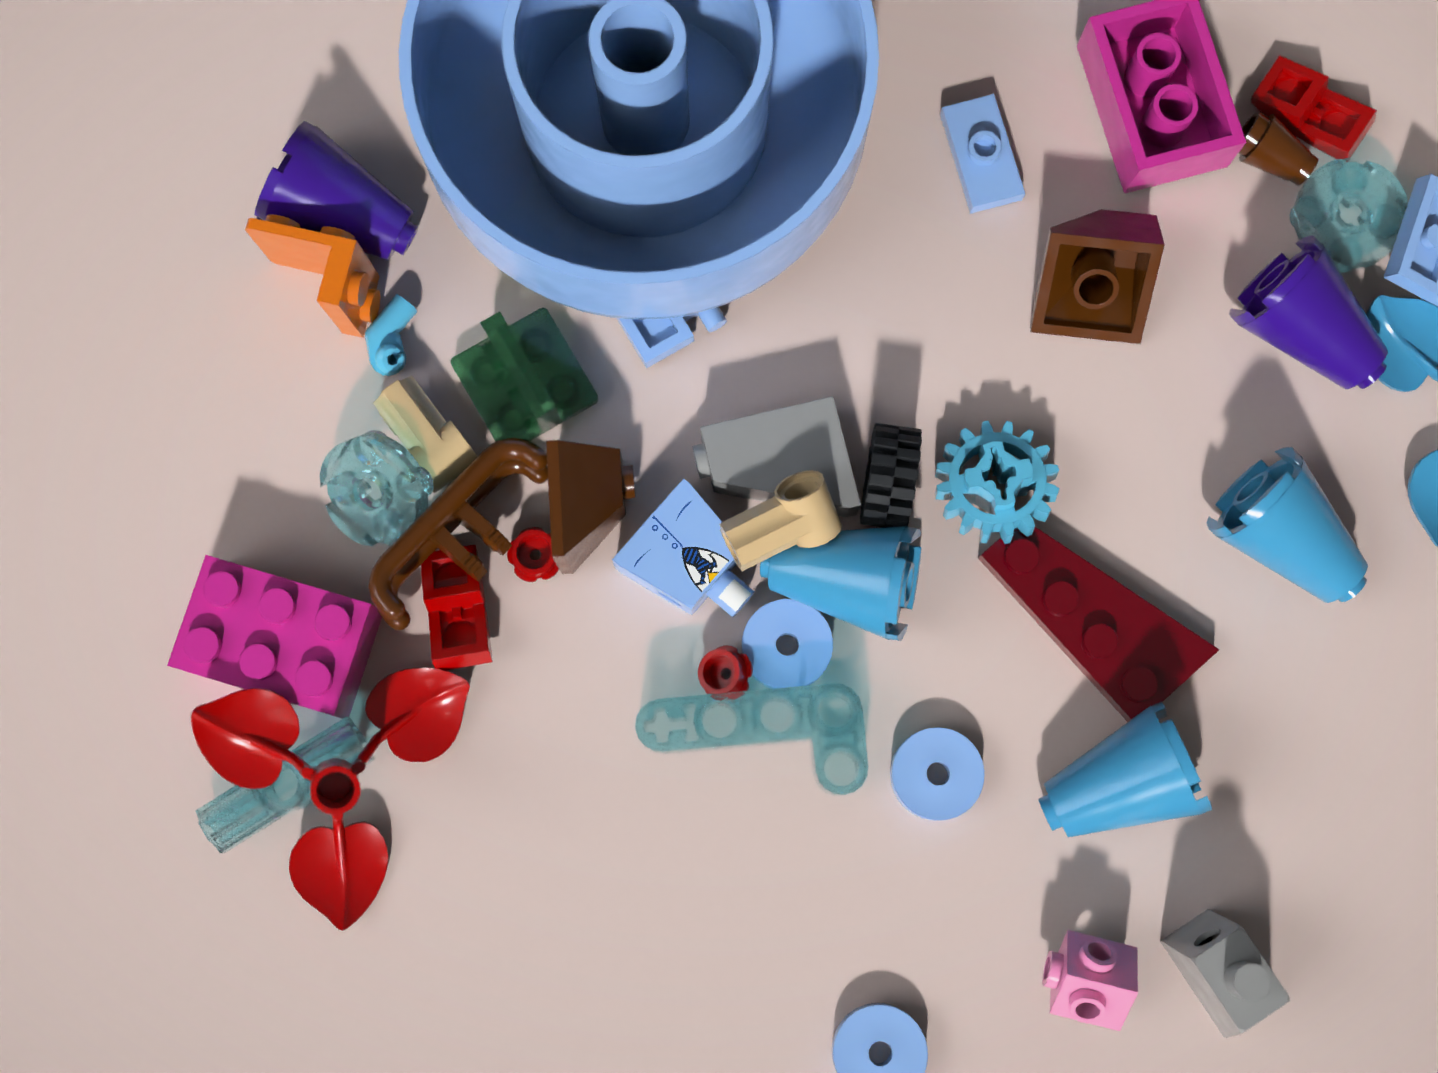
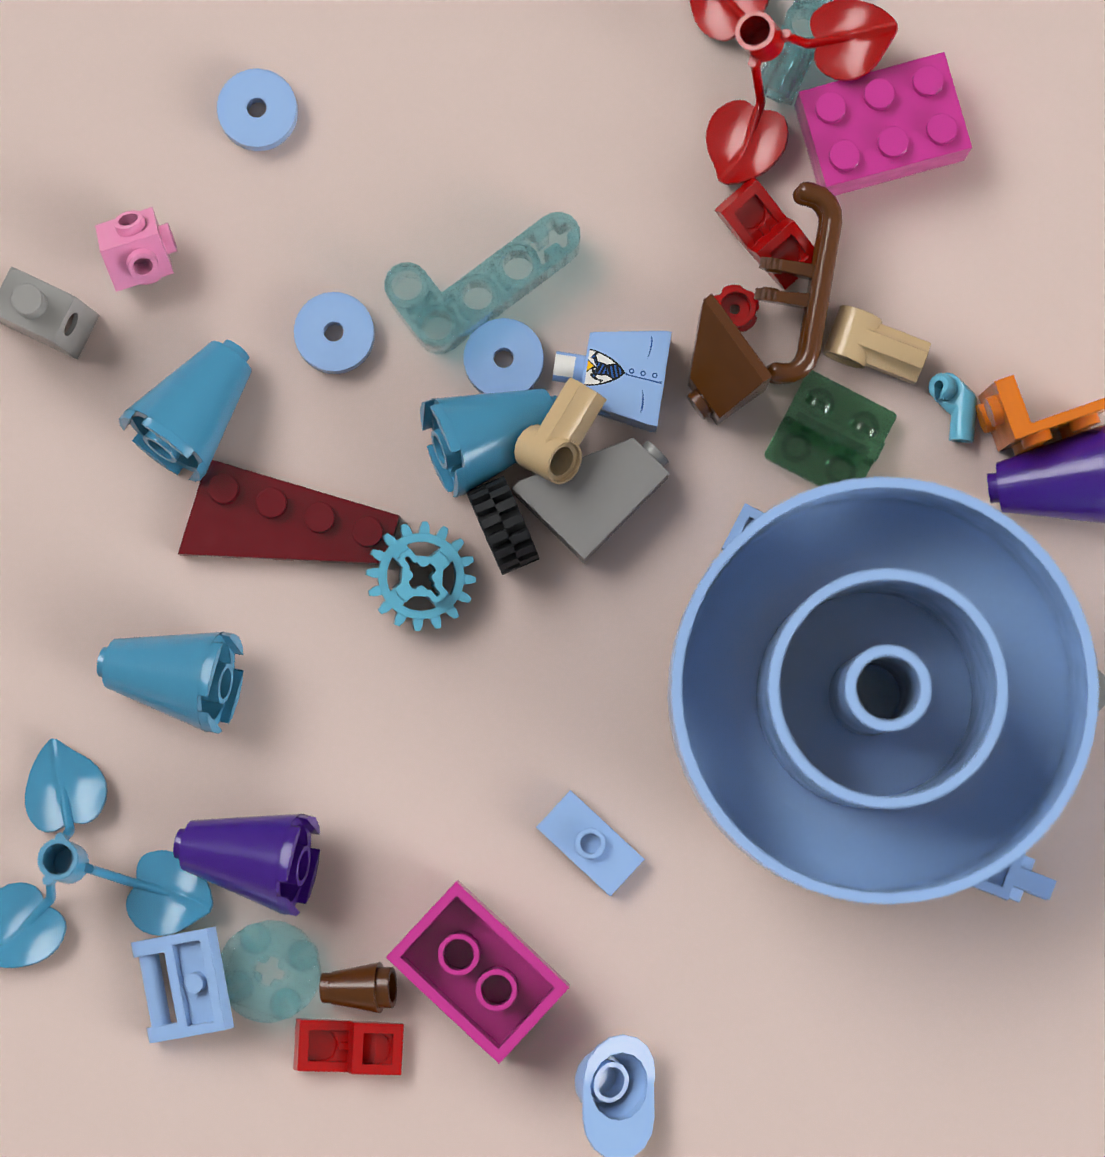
camera: 150 degrees right, 5 degrees up
(396, 473) = (899, 295): clear light blue plate -> none
(716, 662) = (544, 299): red plate -> none
(1099, 276) = (438, 791): reddish brown slope -> none

